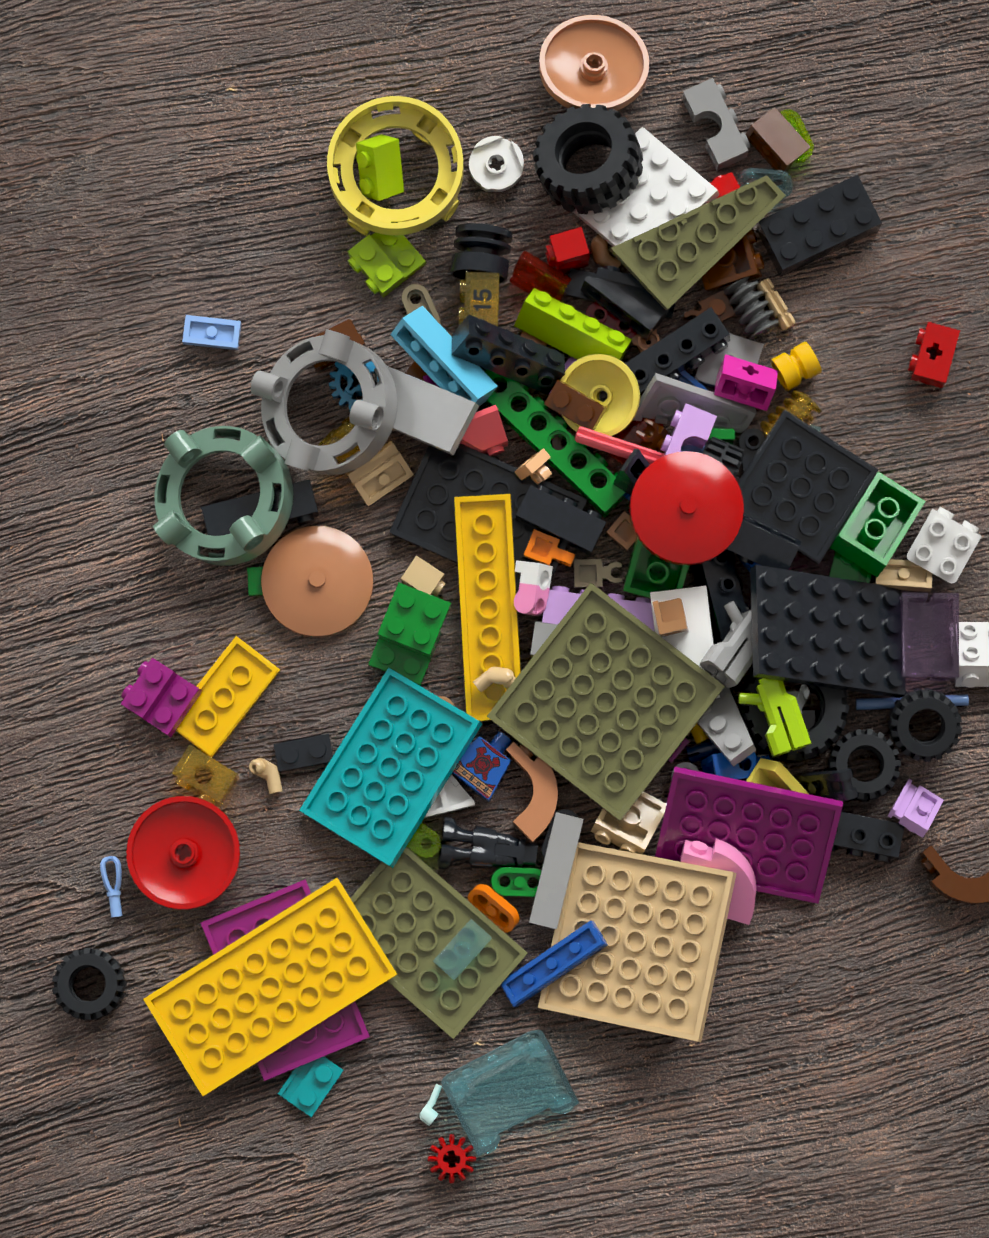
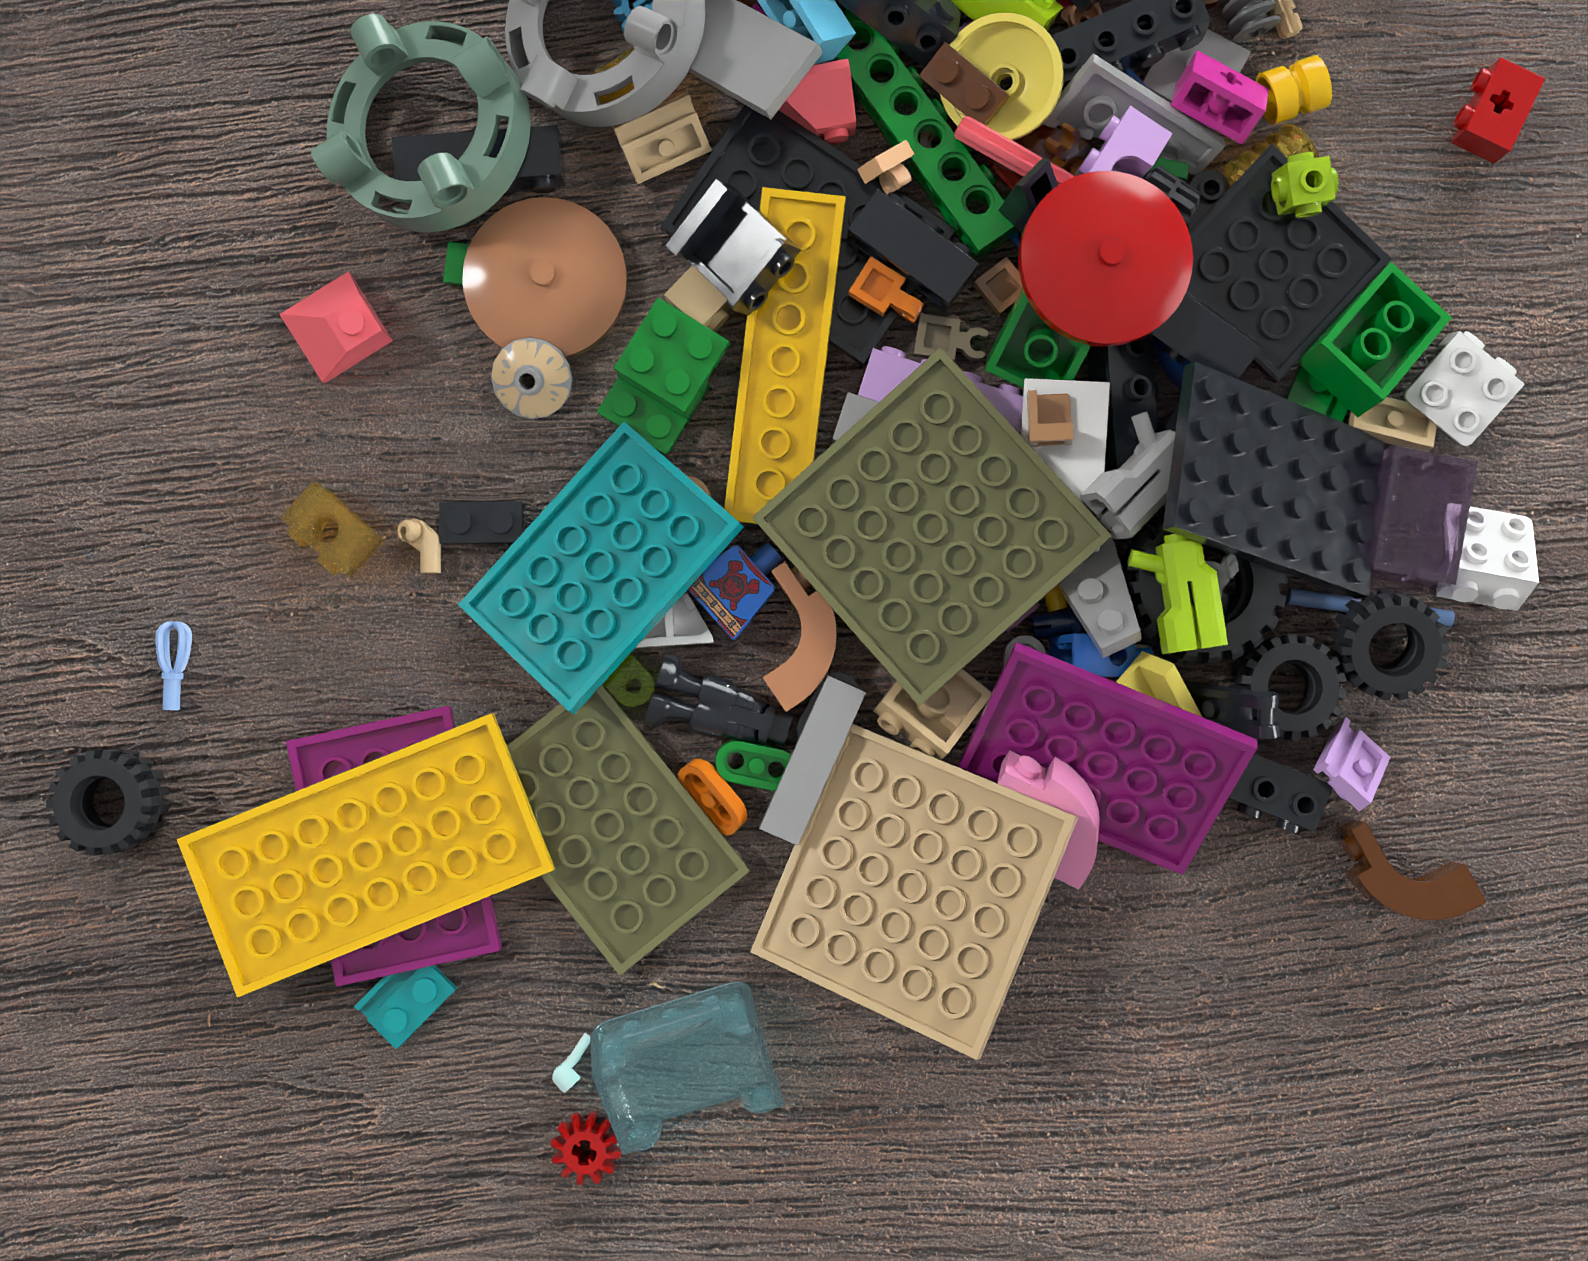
camera: 10 degrees right, 5 degrees up
(160, 696) = (287, 404): magenta plate -> none
(181, 638) = (336, 327): none -> coral slope
(183, 852) = (277, 636): red dish -> none
(226, 696) = (381, 422): yellow tile -> none
(324, 636) = (549, 370): none -> tan dish
(443, 540) = (734, 247): none -> panel
(462, 949) = (655, 851): clear light blue plate -> none
(494, 675) = (775, 460): tan arm -> none
(533, 587) = (854, 340): leg -> none
(553, 963) = (785, 894): blue tile -> none
(798, 440) = (1302, 198): none -> lime brick

